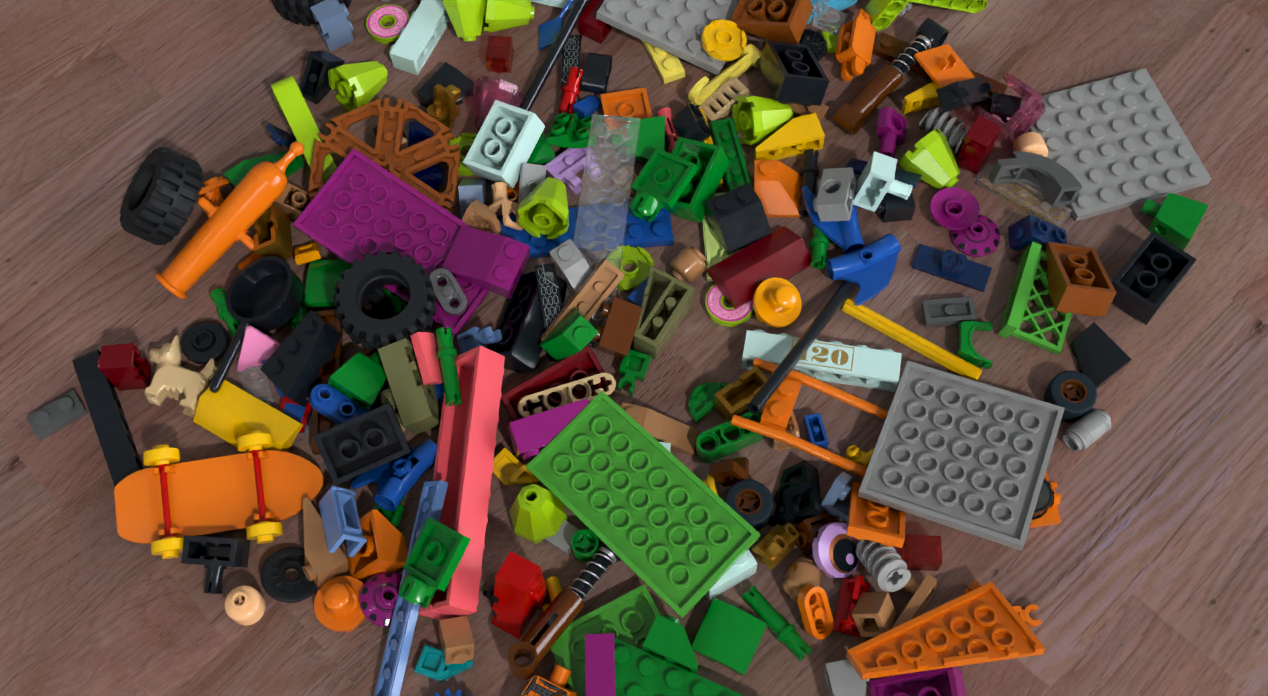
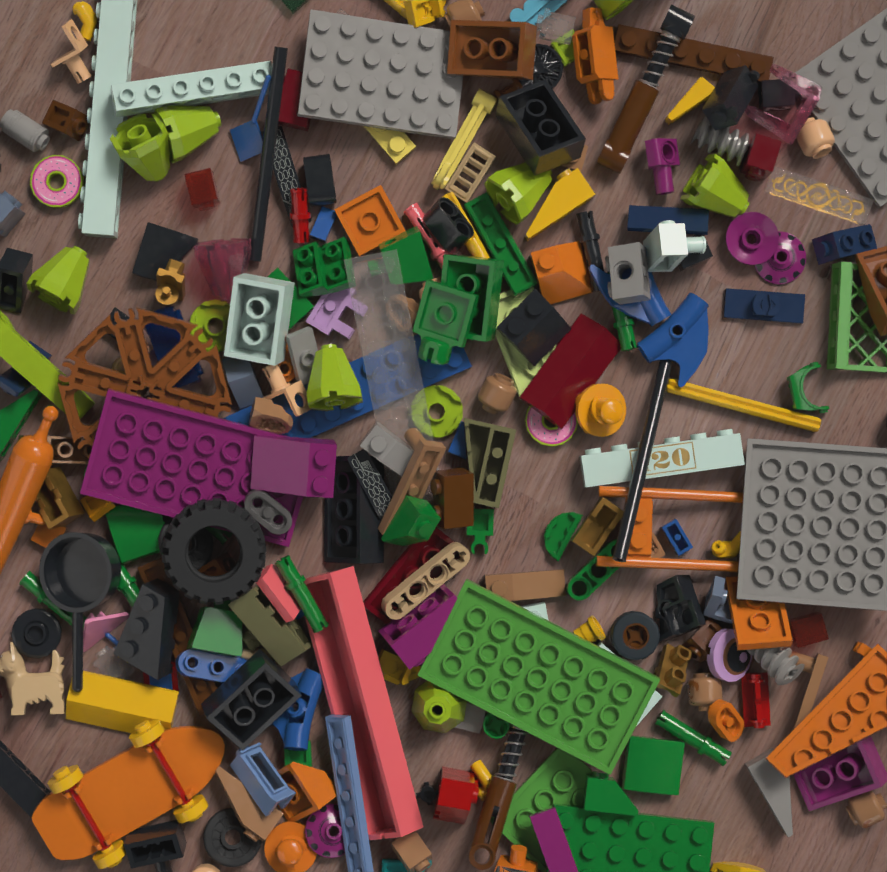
camera: 20 degrees left, 25 degrees up
(432, 562) = (370, 802): green plate -> none
(477, 337) = (312, 551): medium blue plate -> none
(723, 40) = (449, 100): yellow tile -> none
(730, 471) = (610, 605): reddish brown bracket -> none
(874, 613) = (779, 706): medium nougat brick -> none
(943, 65) = (701, 62): orange piece -> none
(948, 311) = (773, 363): dark grey plate -> none
(1040, 172) = (833, 168): dark grey arch -> none

